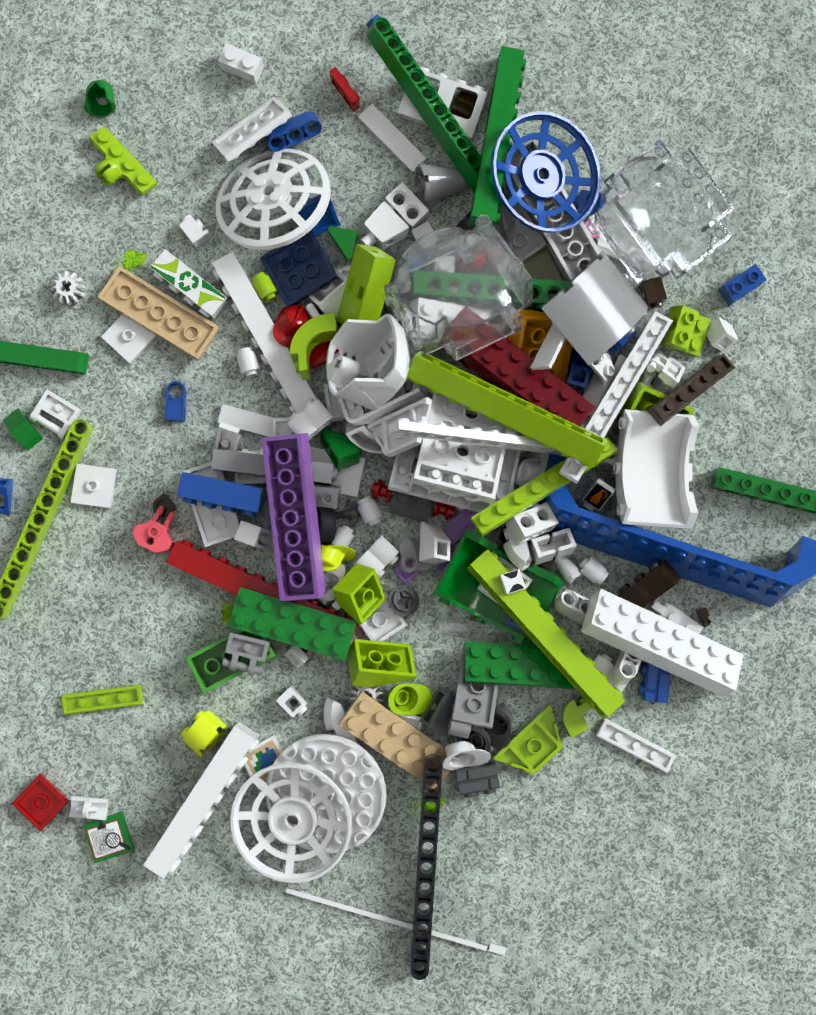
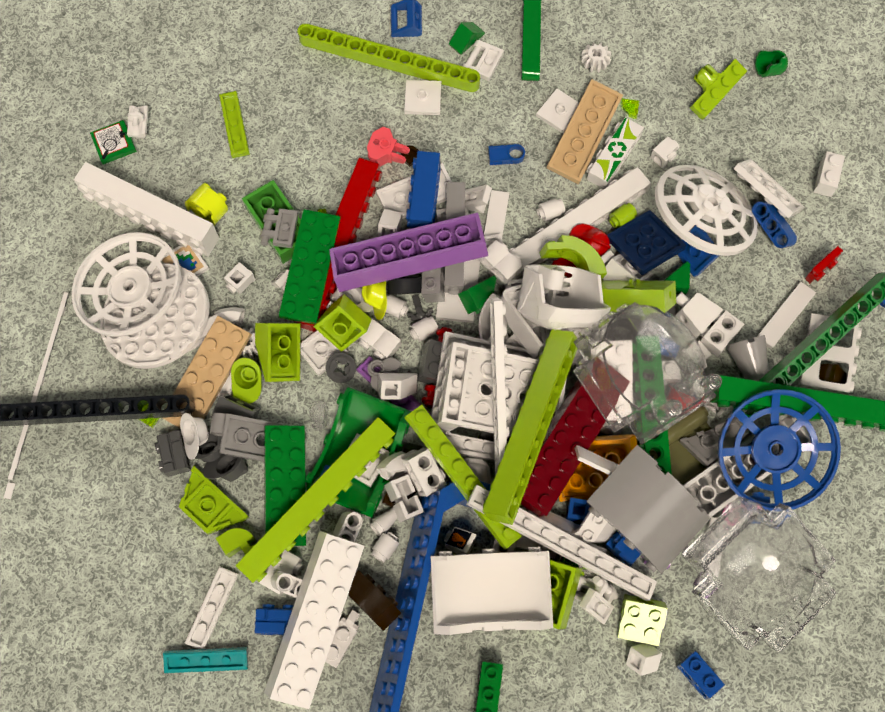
camera: 85 degrees right, 15 degrees down
(40, 802) = (142, 85): red plate -> none
(396, 444) = (514, 339): white wing -> none
(512, 582) = (364, 458): white tile -> none
(653, 292) = (676, 581): dark brown brick -> none
(685, 753) = (205, 660): none -> teal tile
(691, 389) = (580, 624): dark brown tile -> none
(703, 615) = (346, 667): dark brown tile -> none

